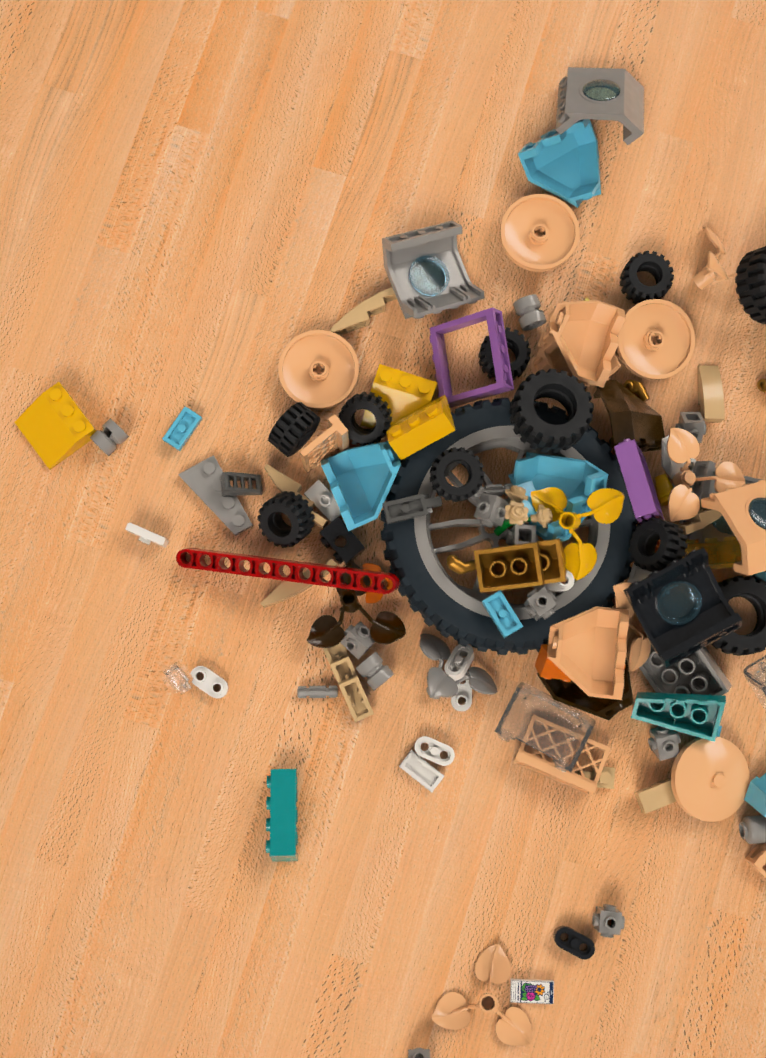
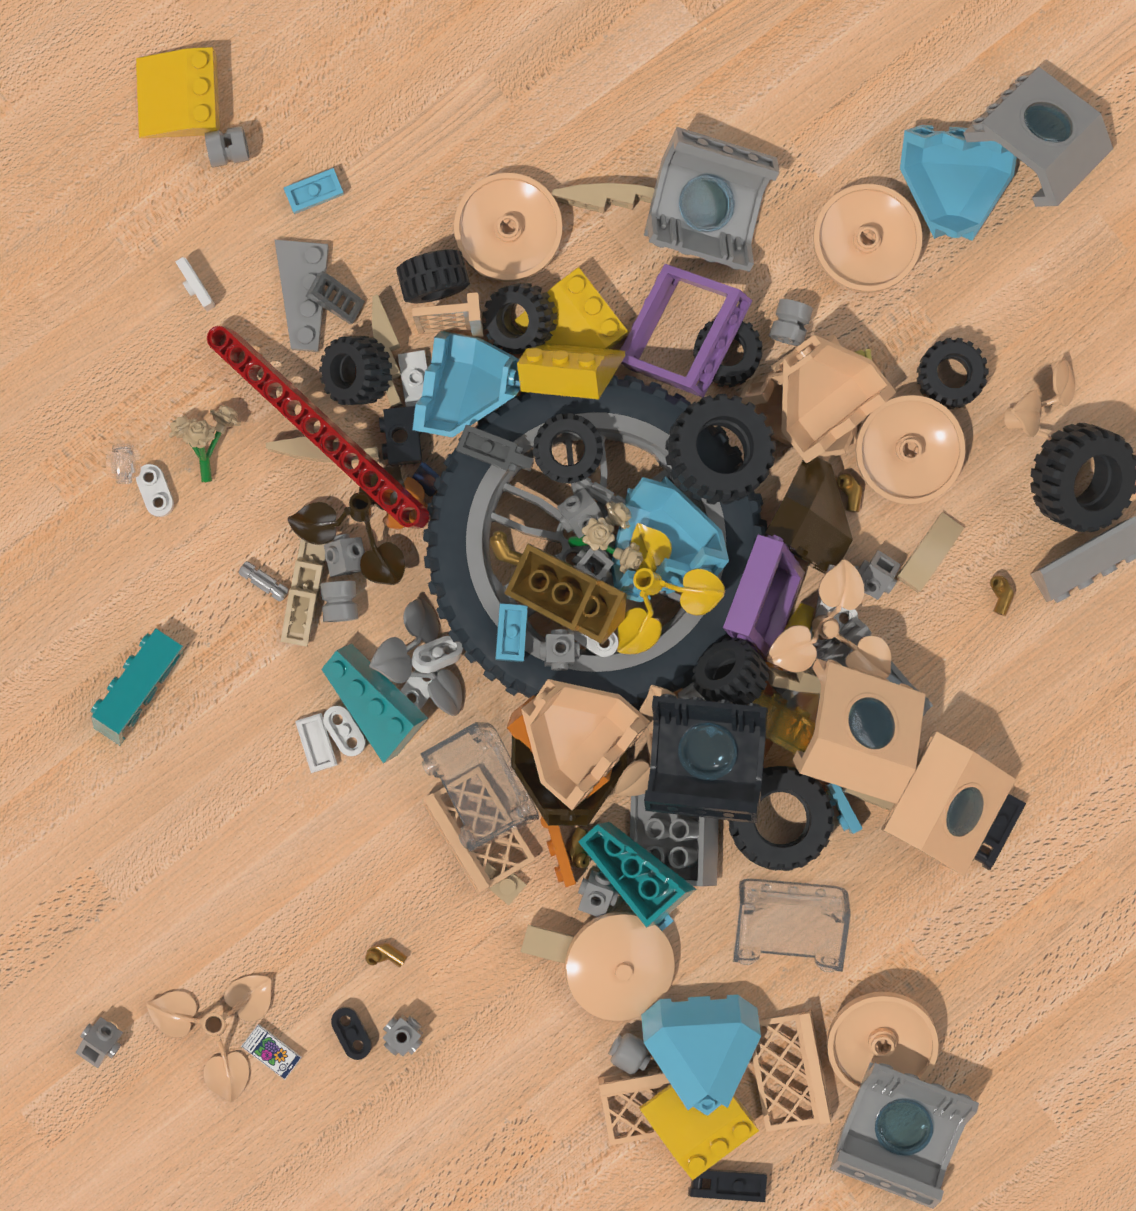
camera: 40 degrees right, 5 degrees up
(217, 625) = (200, 433): none -> tan plant
(375, 556) = (426, 478): none -> dark blue slope
(441, 719) = (374, 702): none -> teal wedge
(558, 874) = (384, 952): none -> pearl gold arm
(619, 731) = (556, 847): none -> orange plate
(630, 724) = (575, 851): none -> pearl gold arm

